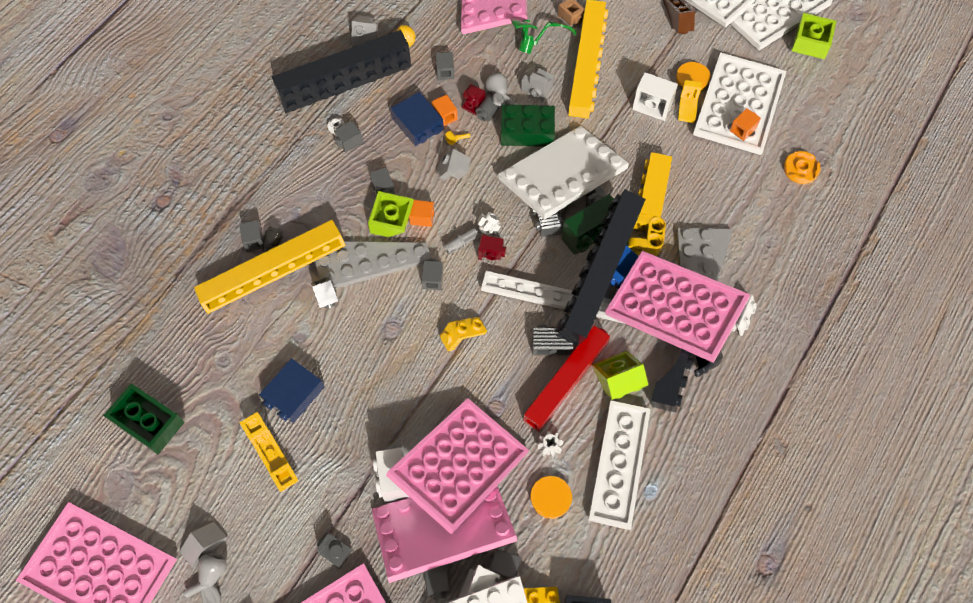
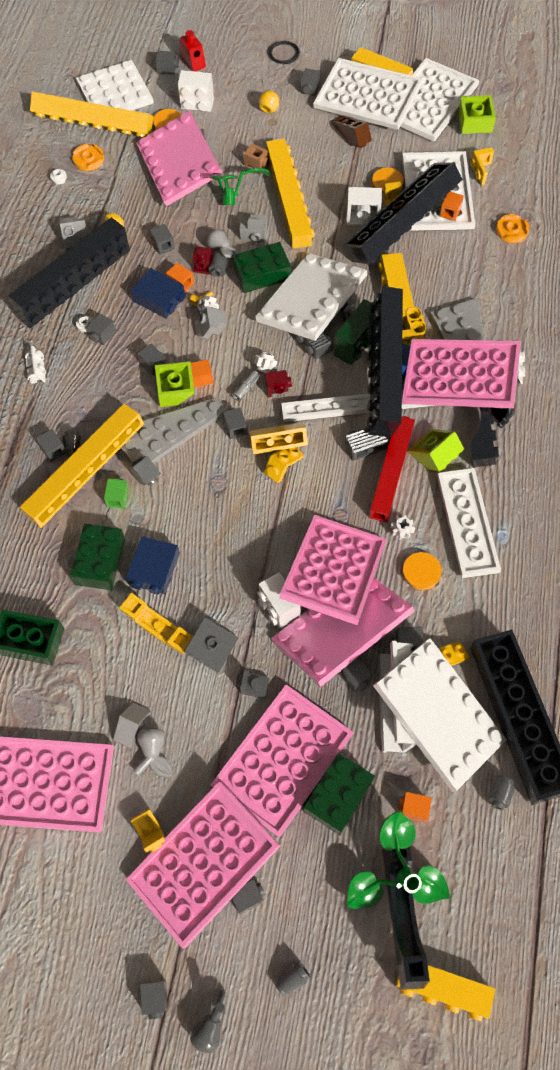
camera: 20 degrees left, 0 degrees up
(244, 363) = (97, 557): none -> dark green brick
(275, 149) = (35, 360): none -> white hinge
(290, 305) = (116, 493): none -> bright green brick
(310, 493) = (211, 645): none -> dark grey plate
(459, 145) = (207, 301): none -> white gear
(466, 306) = (278, 438): none -> yellow brick
(690, 116) = (403, 213): none -> black brick
(799, 82) = (479, 159): none -> yellow bracket

